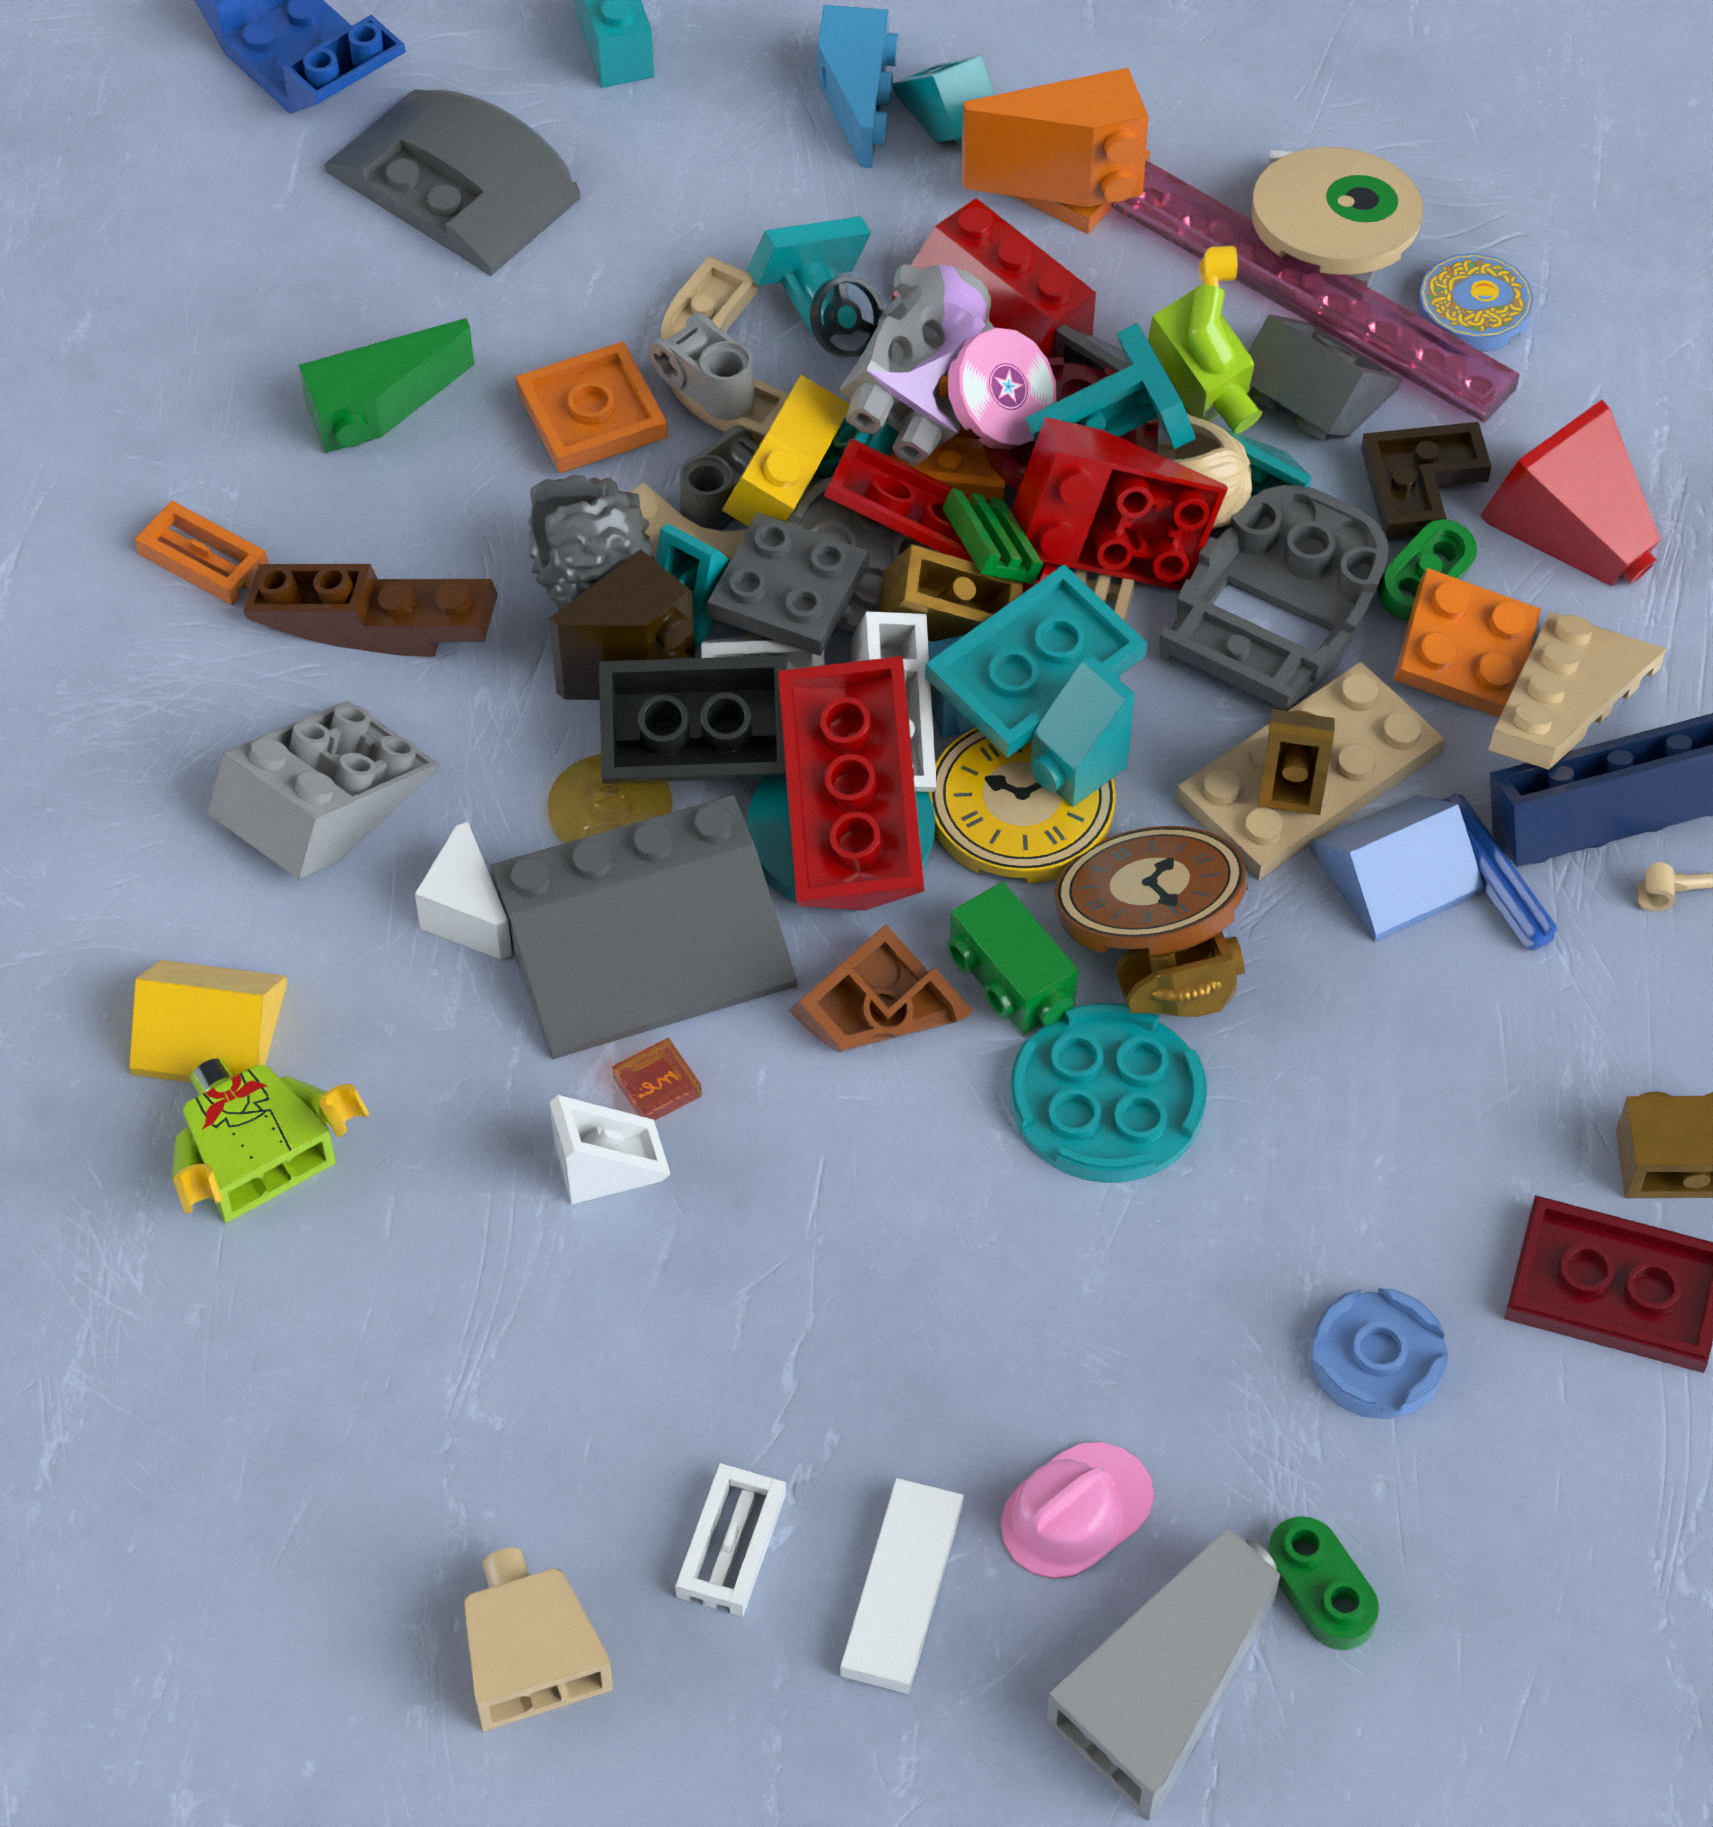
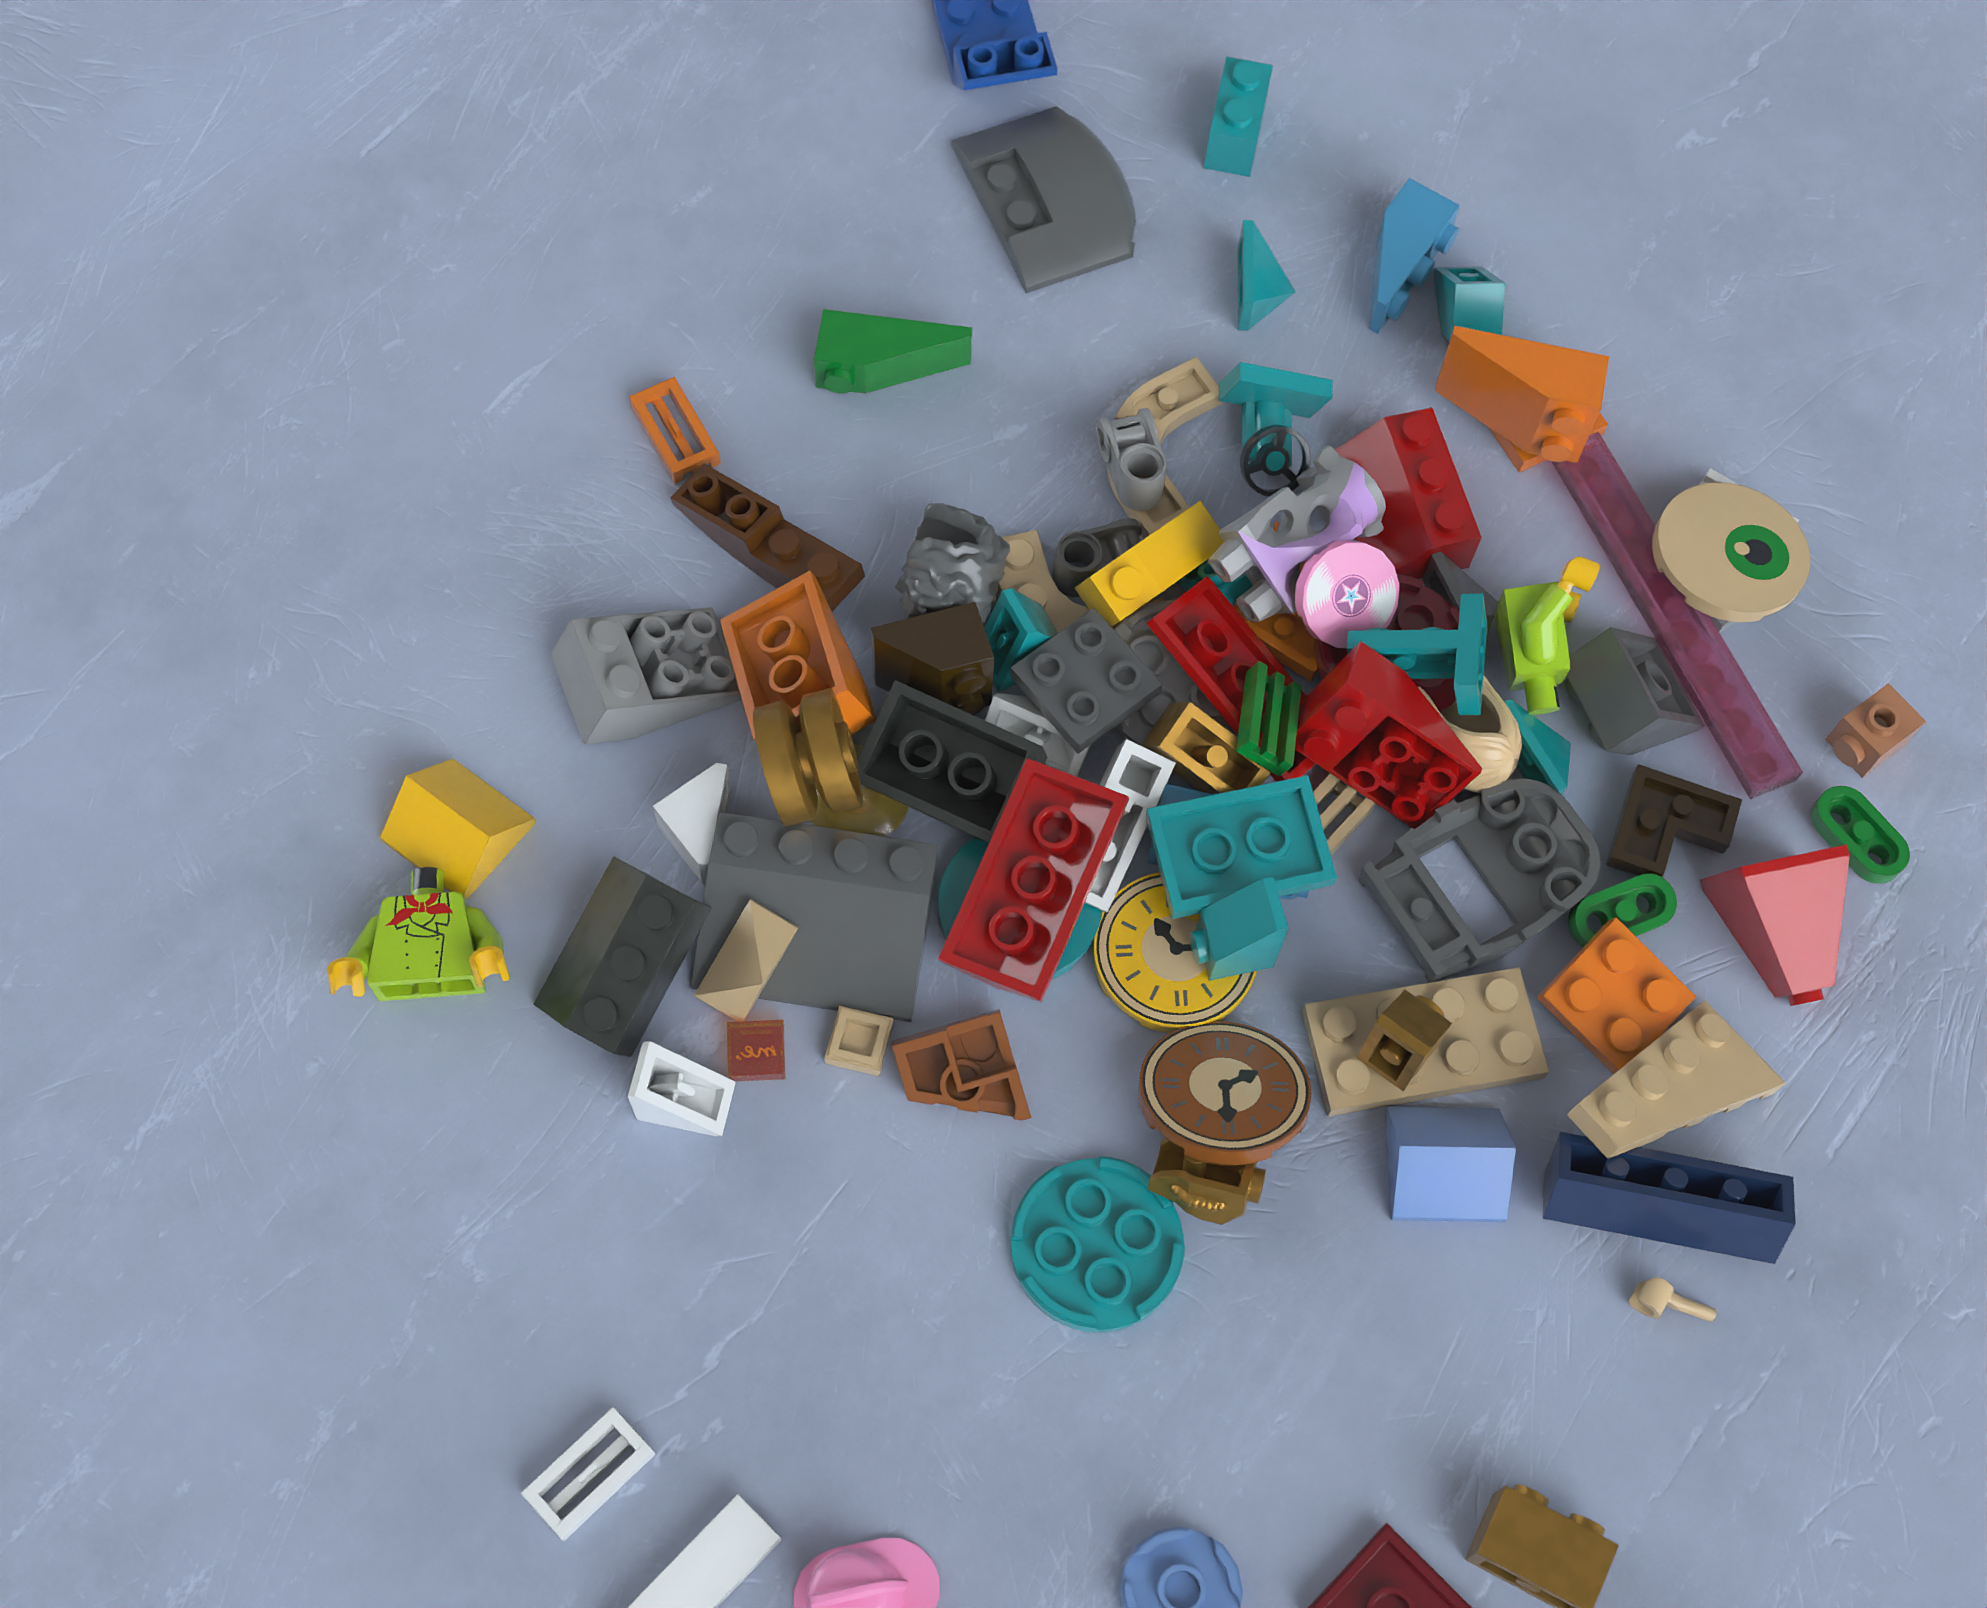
camera: 25 degrees right, 10 degrees up
(466, 1046) = (621, 958): none -> pearl dark grey slope
(484, 707) = (792, 648): none -> orange slope
(530, 1643) = (384, 1480): tan torso -> none
(561, 759) = (800, 759): none -> pearl gold wheel
(591, 407) = (1033, 445): orange plate -> none
(600, 997) = (746, 961): none -> tan slope
(721, 161) = (1260, 278): none -> teal slope
(756, 1024) = (859, 1041): none -> tan tile
(1012, 959) = (1084, 1092): green brick -> none
(1476, 299) = (1806, 684): tile -> none
(1505, 884) = (1524, 1219): blue axle -> none
(1561, 322) = (1874, 730): none -> nougat brick
(1633, 408) = (1863, 832): none -> green plate

